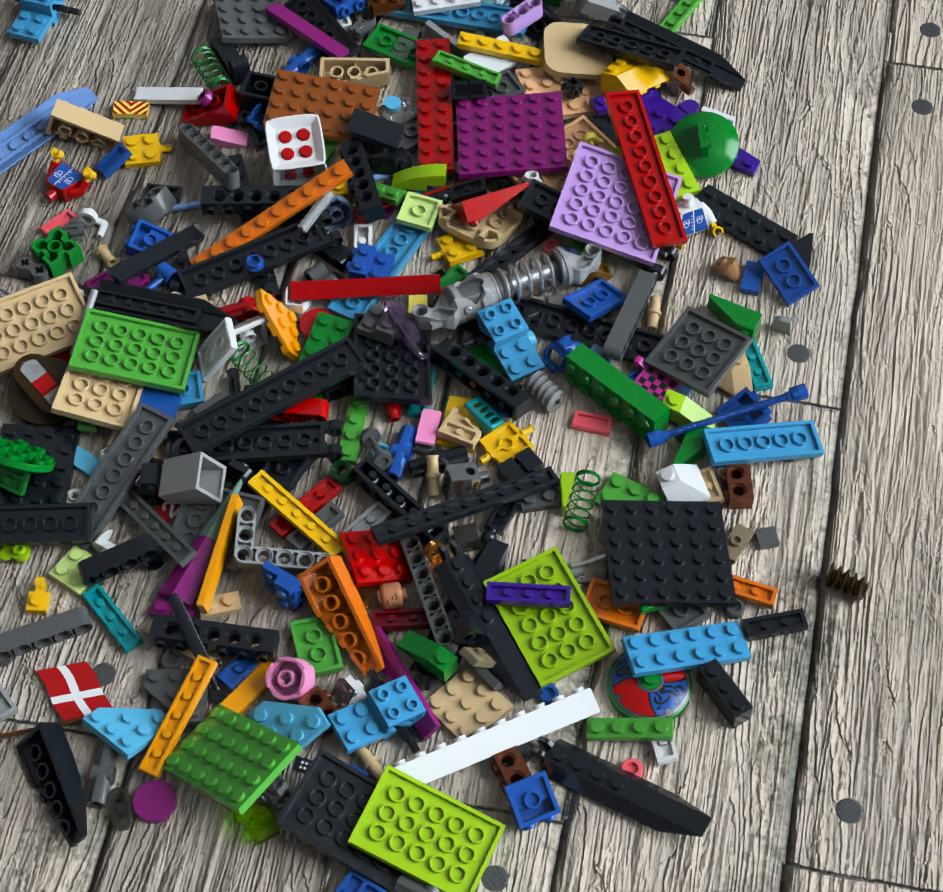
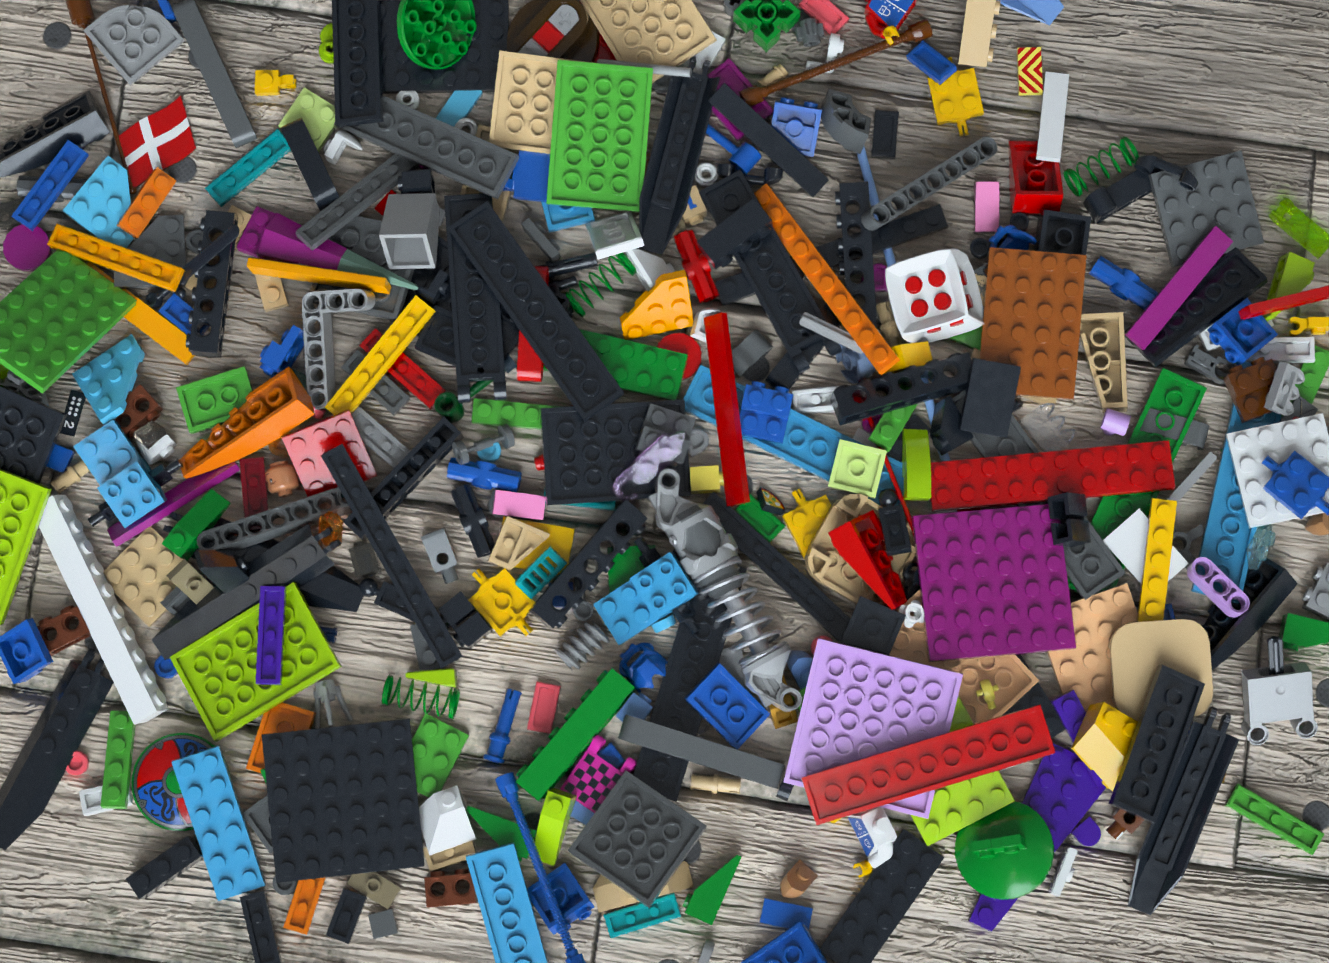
camera: 90 degrees right, 25 degrees up
(103, 766) = (50, 185): none -> blue plate
(116, 256) = (916, 32): none -> reddish brown hose
(130, 696) = (146, 202): none -> orange plate
(205, 98) = (1036, 165): magenta tile -> none
(229, 14) = (1147, 164): none -> black bar
(229, 269) = (735, 234): none -> black brick
(254, 263) = (748, 265): blue plate -> none
(279, 676) = (163, 374): bright pink brick -> none
(392, 104) = (1052, 418): medium azure tile -> none
(399, 68) = (1115, 422): none -> lavender pin
(433, 475) = (447, 515): tan pin -> none
(466, 68) = (1111, 514): bright green tile -> none
(572, 88) = (1092, 669): black gear -> none
(615, 449) = (500, 738): none -> blue pin
(761, 561) = (346, 916): none -> black plate

